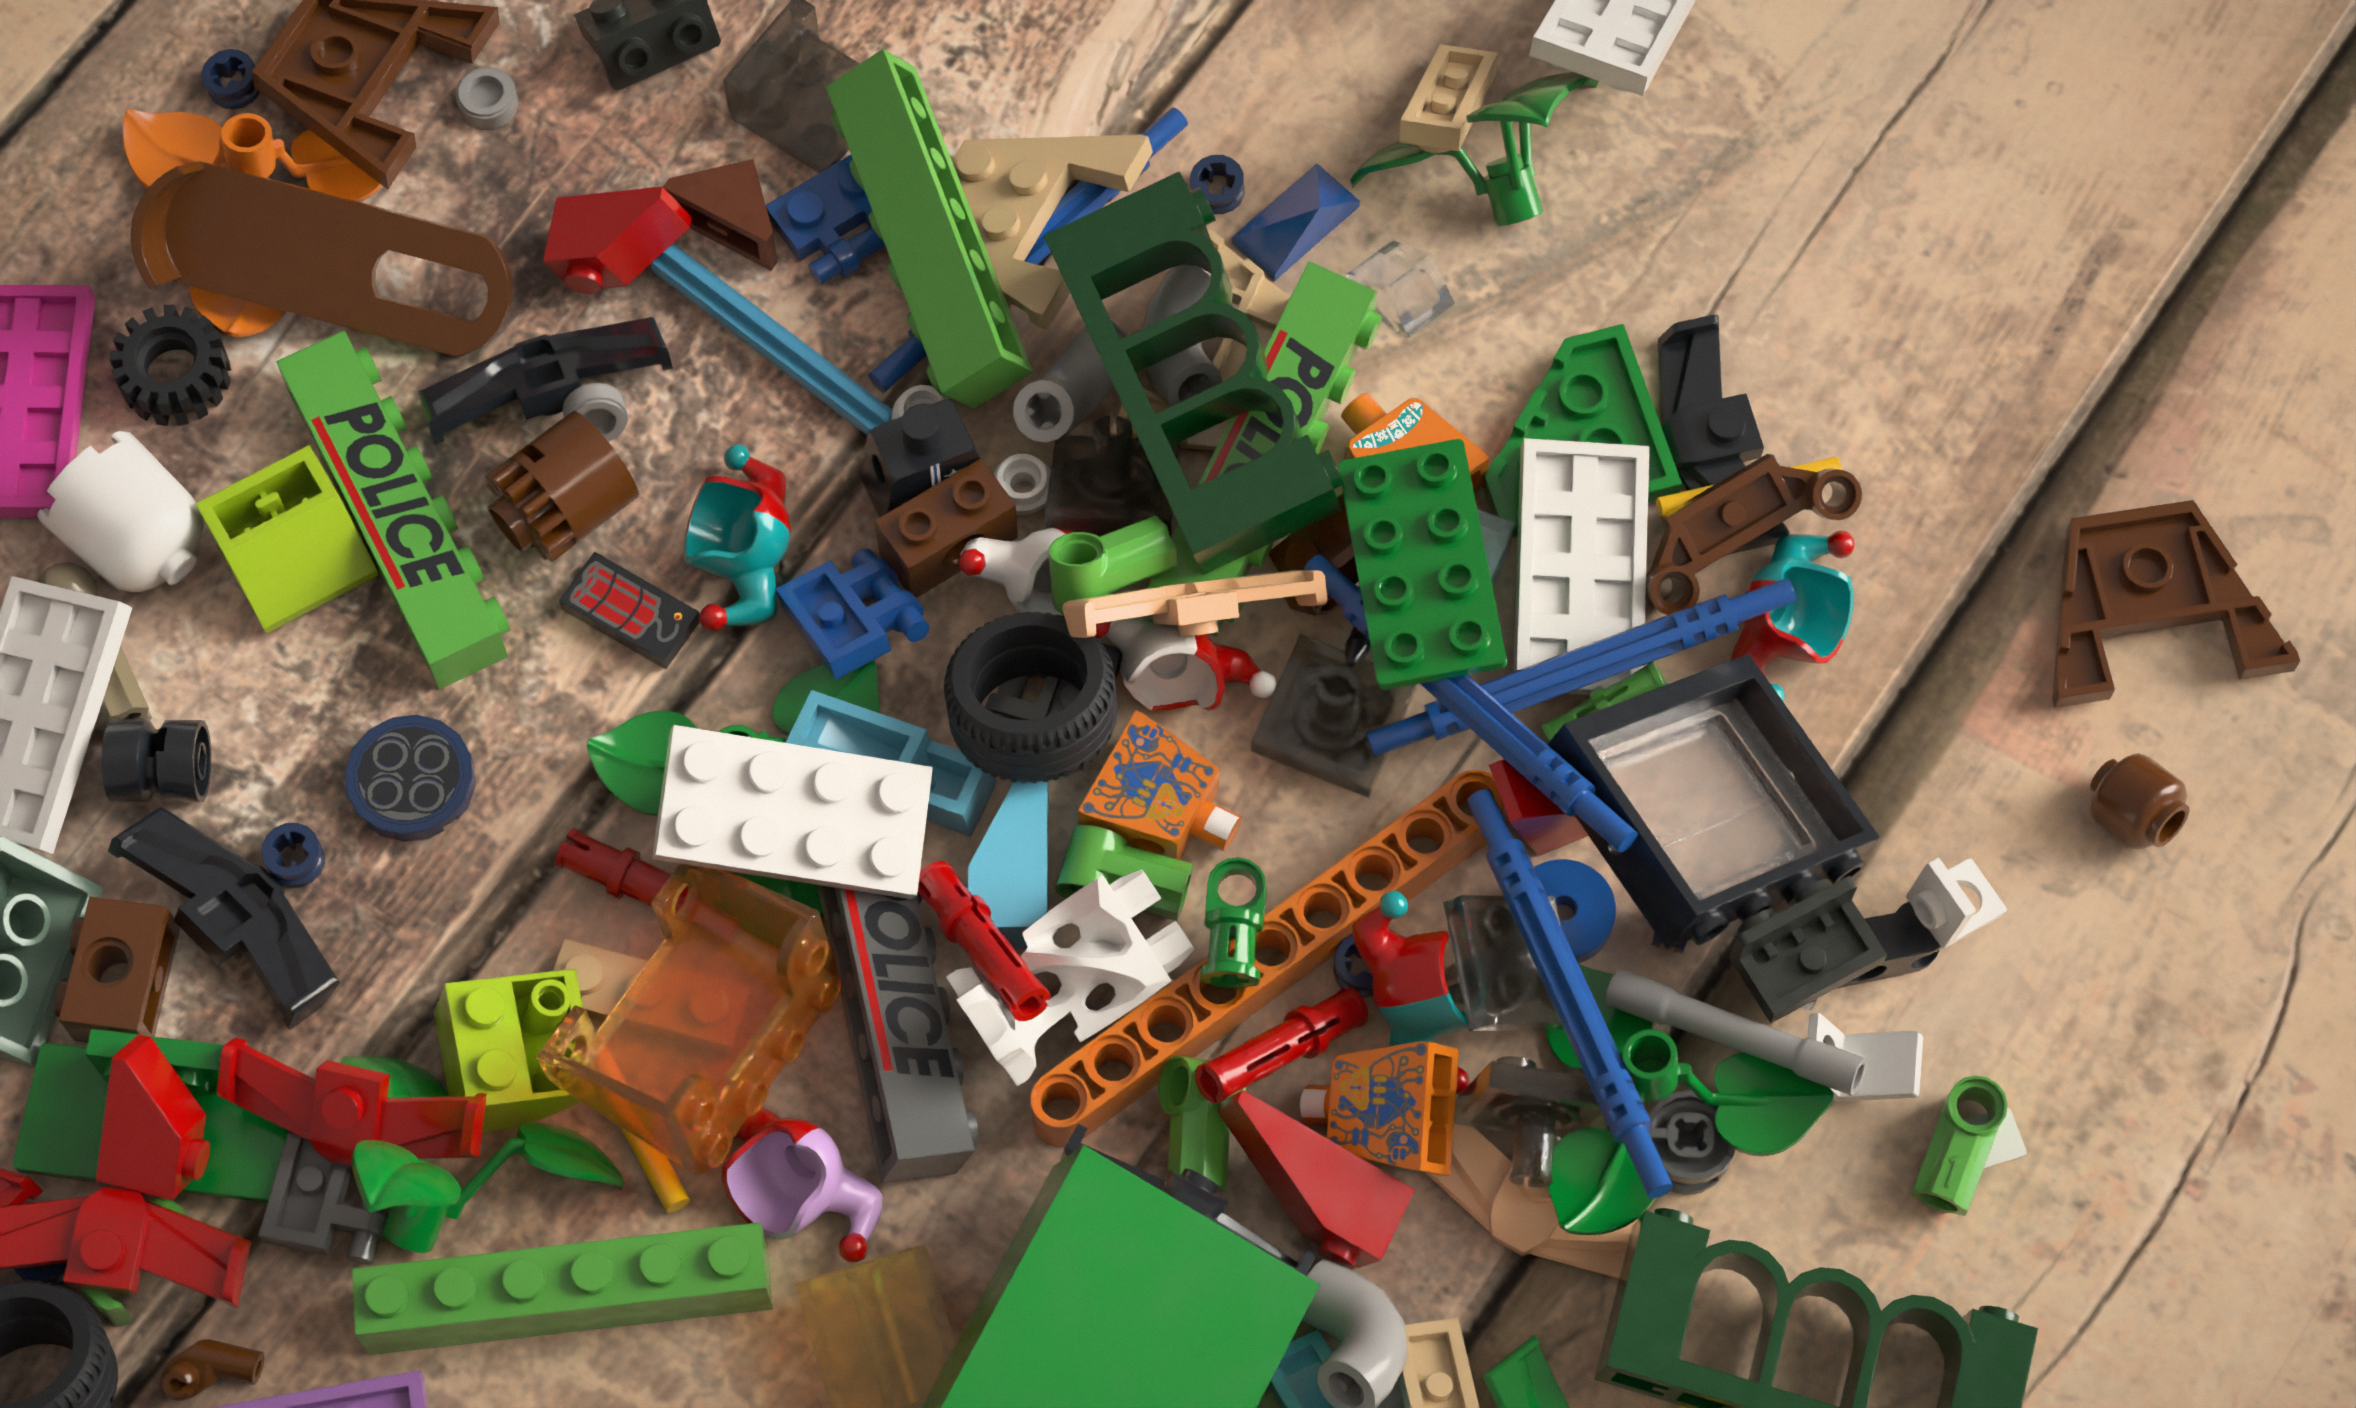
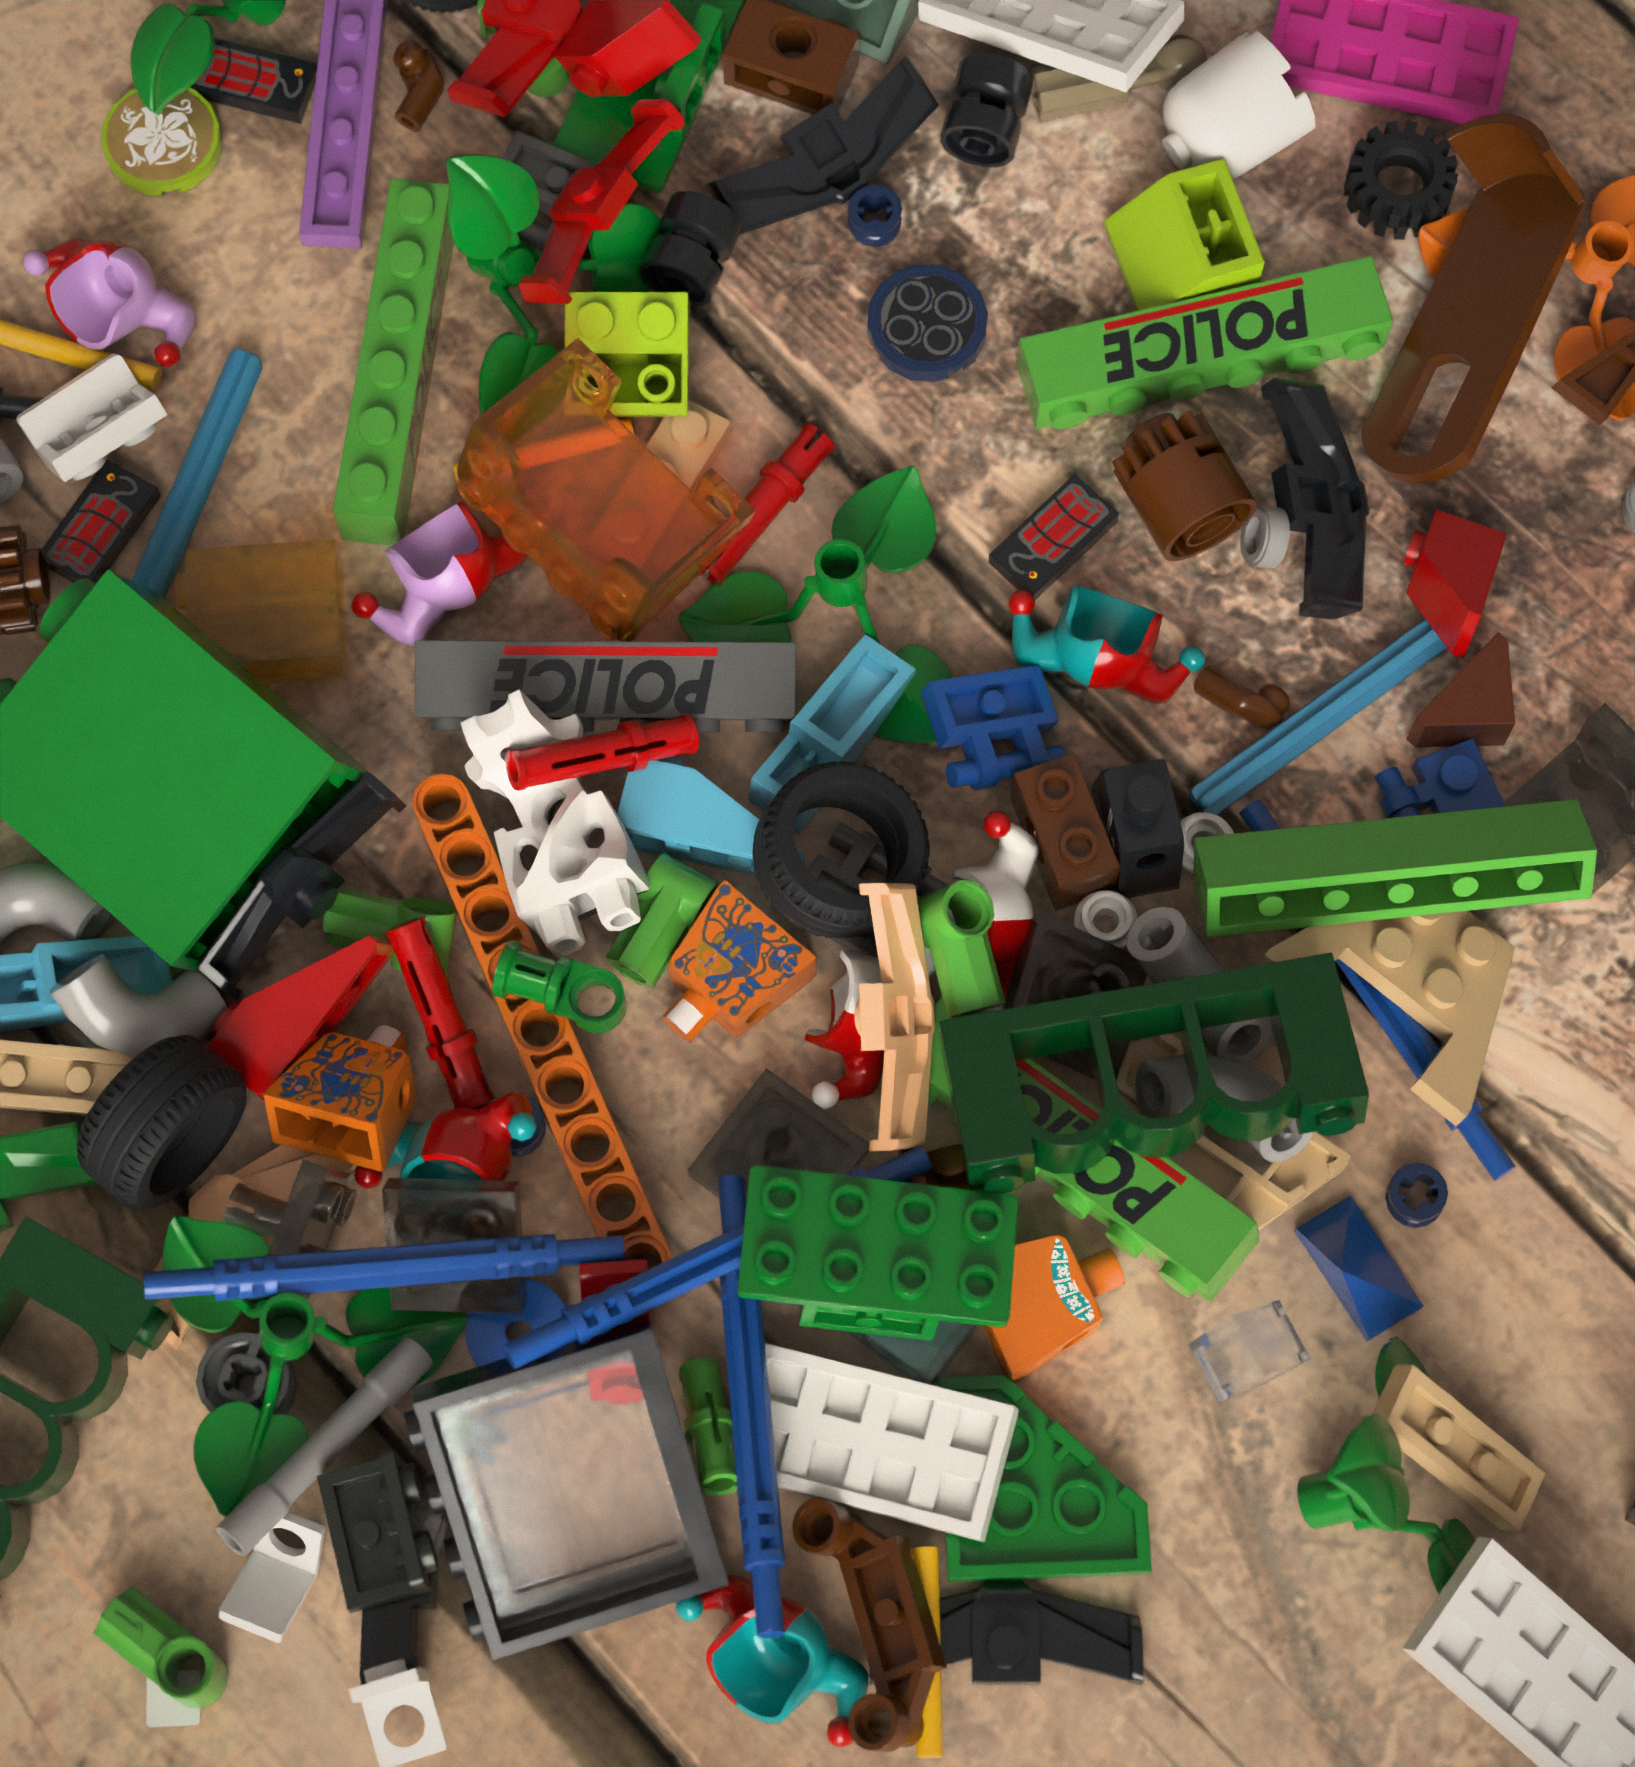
camera: 105 degrees right, 5 degrees up
(363, 1017) = (691, 244): none -> black wheel
(771, 410) = (1236, 699): none -> reddish brown arm
(792, 812) = (764, 601): white plate -> none
(1471, 1267) = (161, 1122): none -> black tyre

